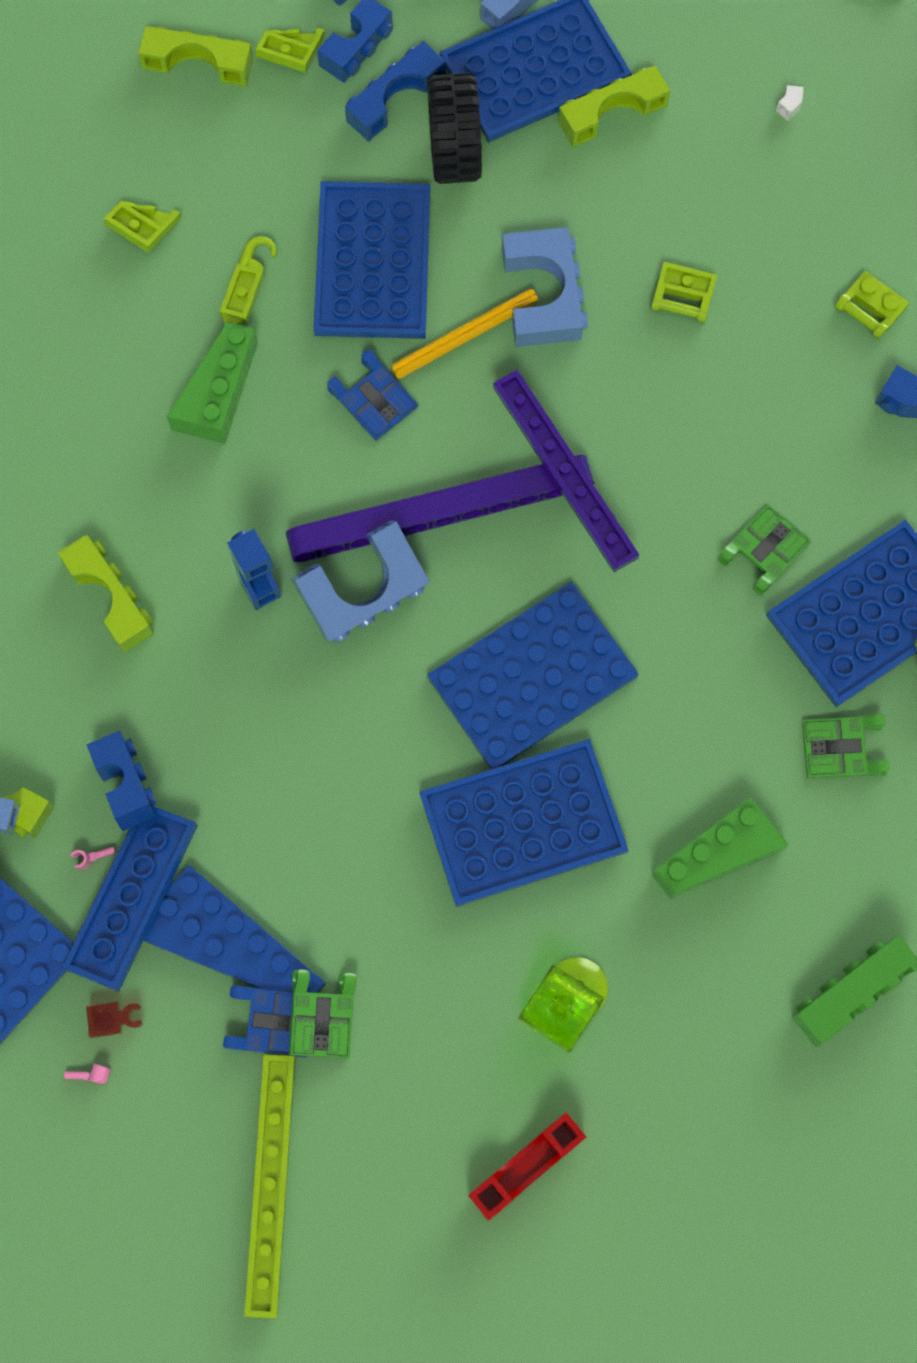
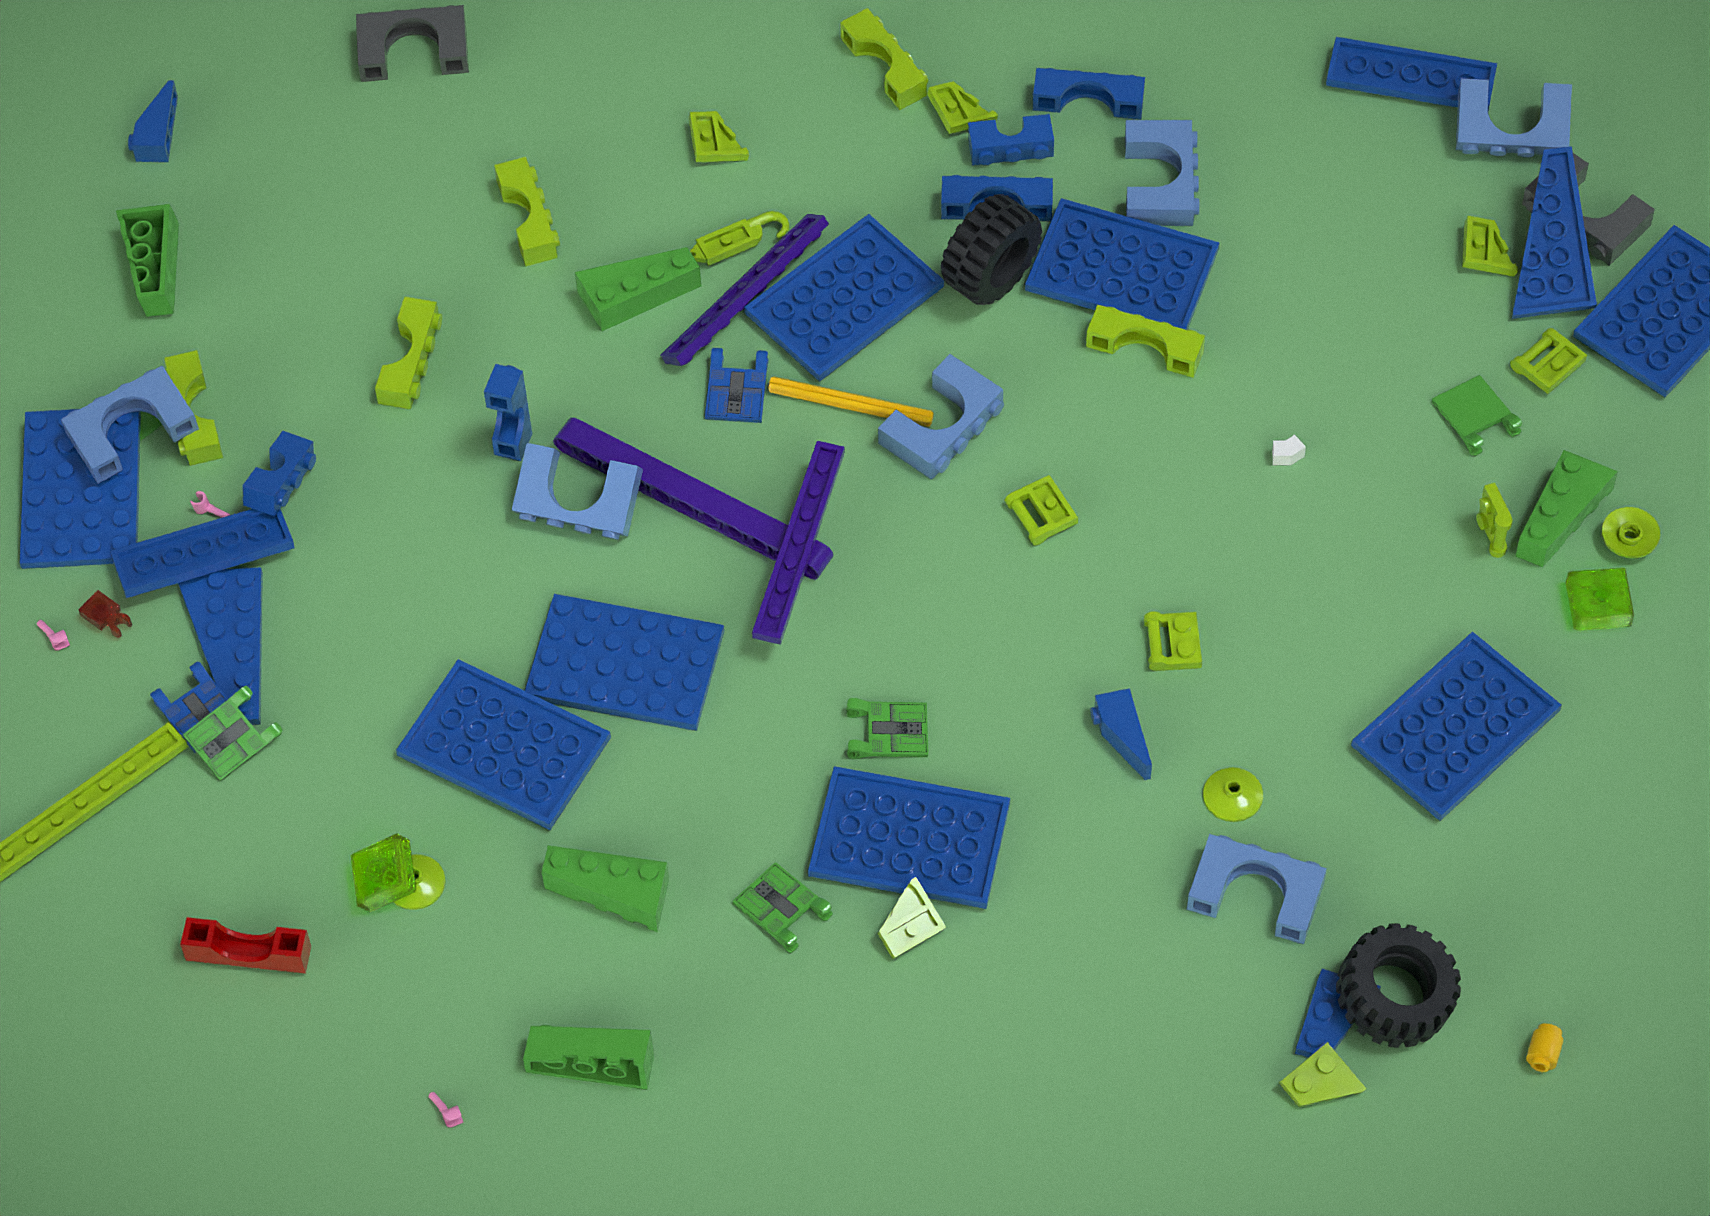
camera: 50 degrees right, 15 degrees down
(37, 387) = (518, 186): none -> lime arch
(297, 318) = (740, 294): none -> dark purple plate
(809, 1134) = (451, 1116): none -> bright pink hand

